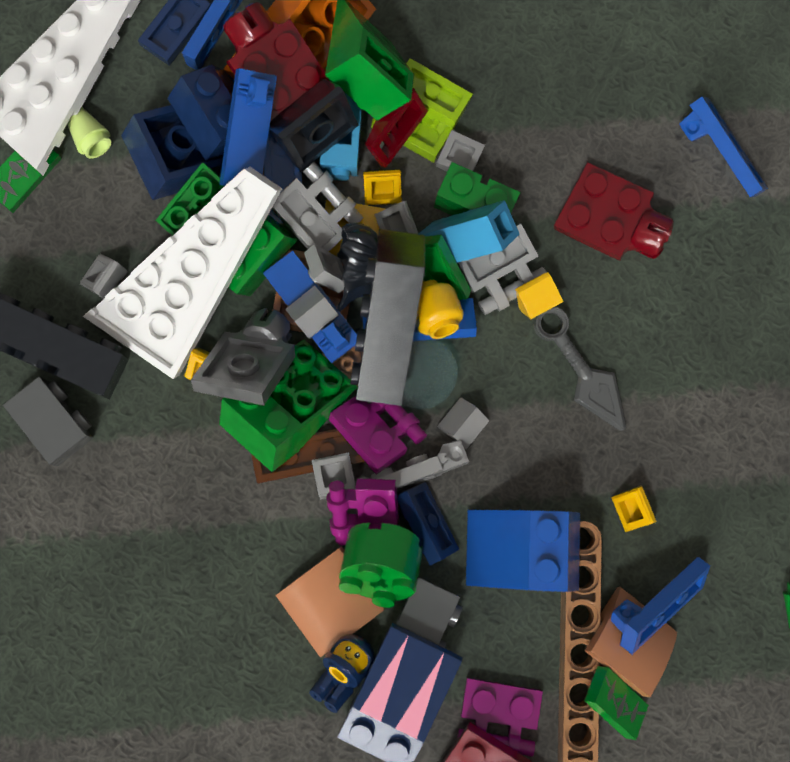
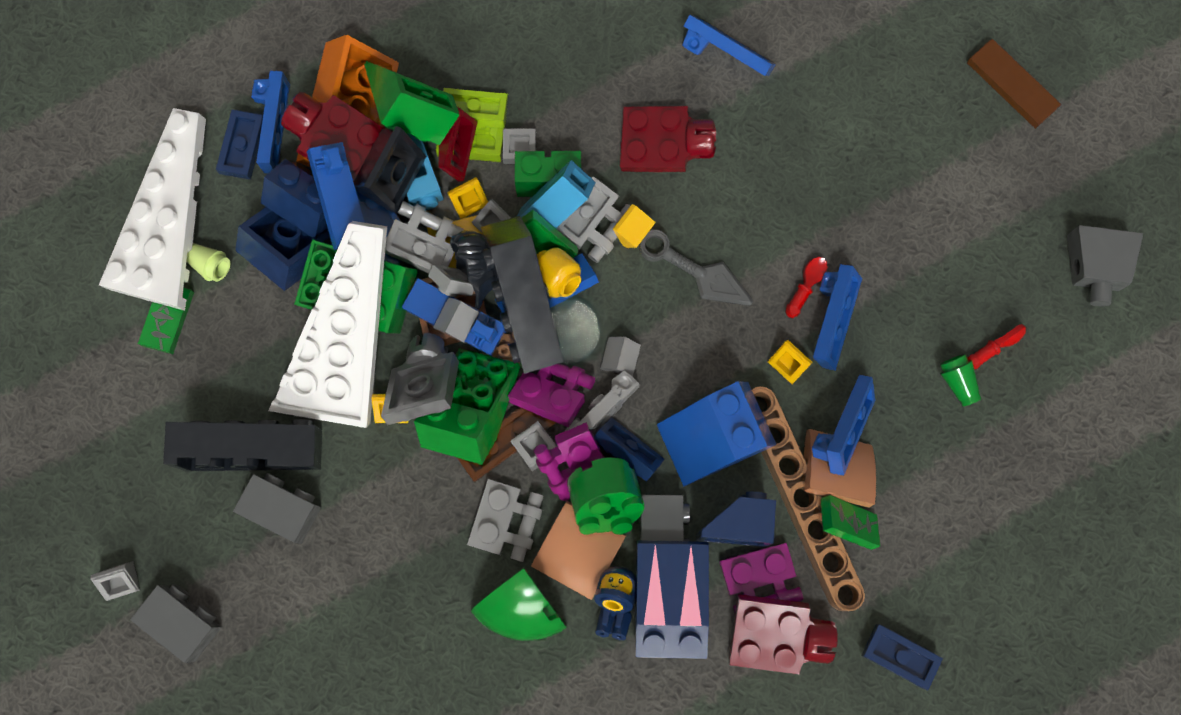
camera: 15 degrees left, 5 degrees down
(103, 276) = (270, 370): light grey slope -> none
(243, 636) = (519, 610): none -> green brick
(261, 530) = (495, 516): none -> light grey plate
(506, 652) = (744, 522): none -> dark blue slope
(701, 428) = (812, 274): none -> red piece
(724, 459) = (843, 291): none -> blue hinge

